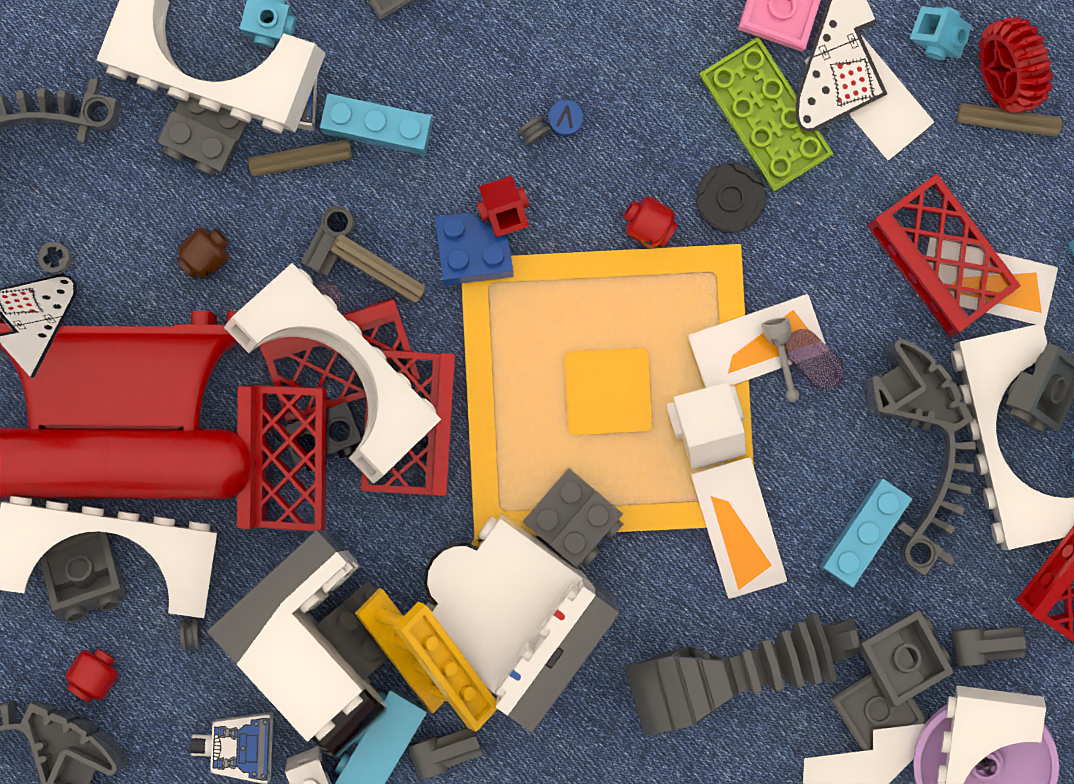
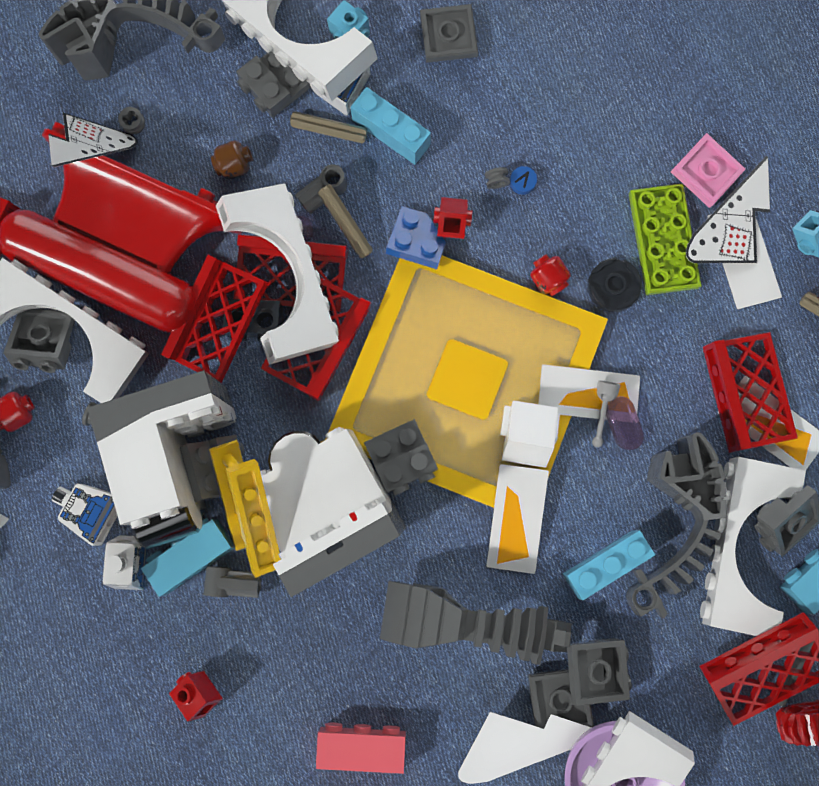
camera: 30 degrees right, 5 degrees down
(978, 645) = (657, 688): dark grey piece -> none

